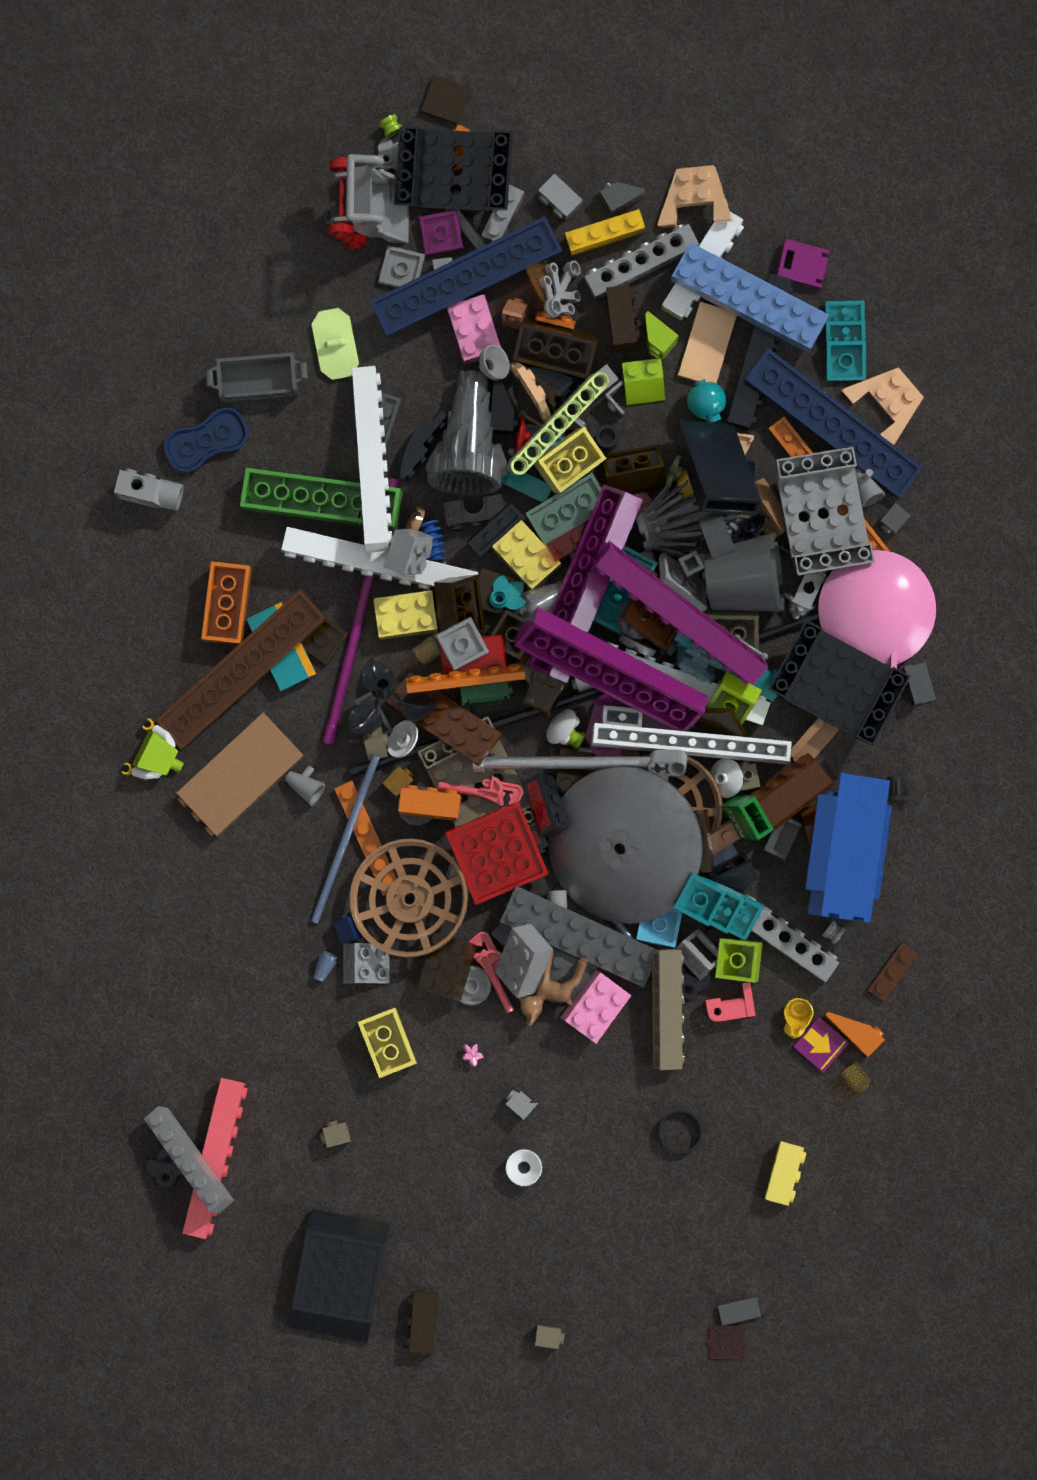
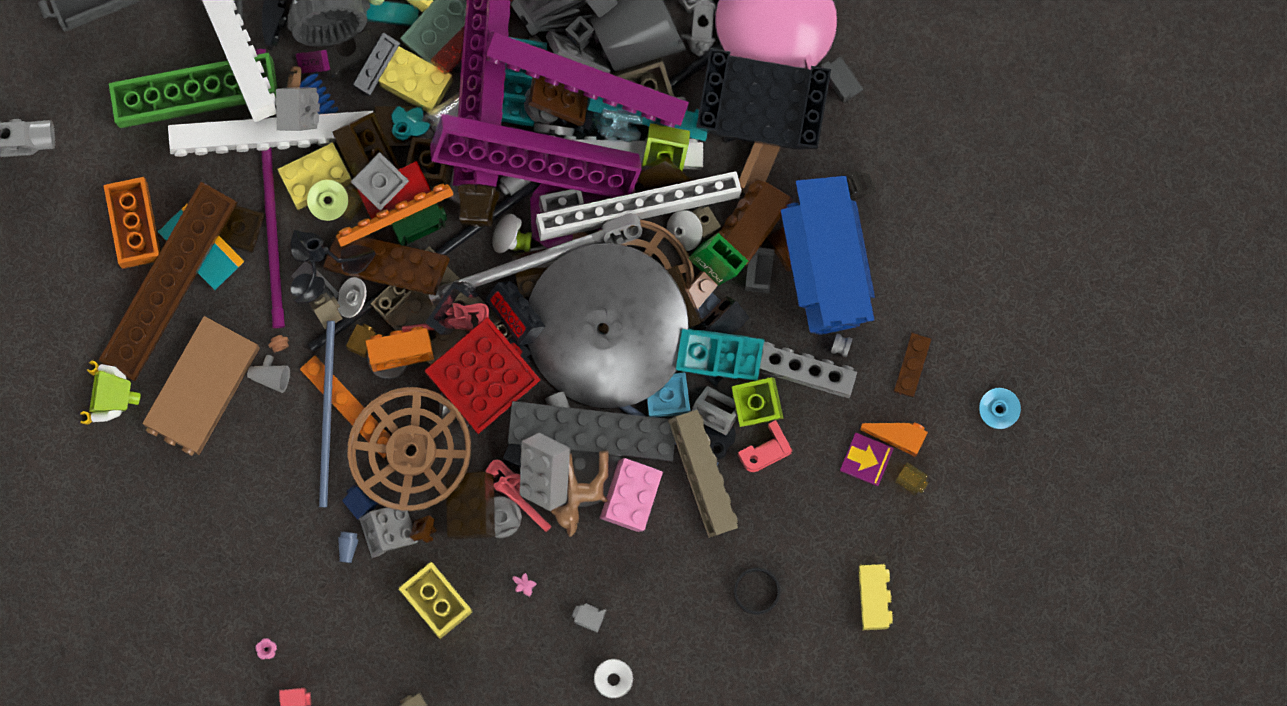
camera: 25 degrees left, 5 degrees down
(191, 446) = (72, 60): dark blue plate -> none
(221, 1029) = (266, 654): none -> bright pink plate
(322, 759) = (278, 343): none -> nougat plate
(397, 973) = (422, 529): none -> reddish brown tile
(406, 652) = (316, 200): none -> yellowish green dish
(438, 507) = (313, 61): none -> magenta tile
(473, 793) = (435, 319): none -> black panel
(798, 1016) = (834, 437): yellow hair -> none
(966, 1032) = (1005, 399): none -> medium azure dish

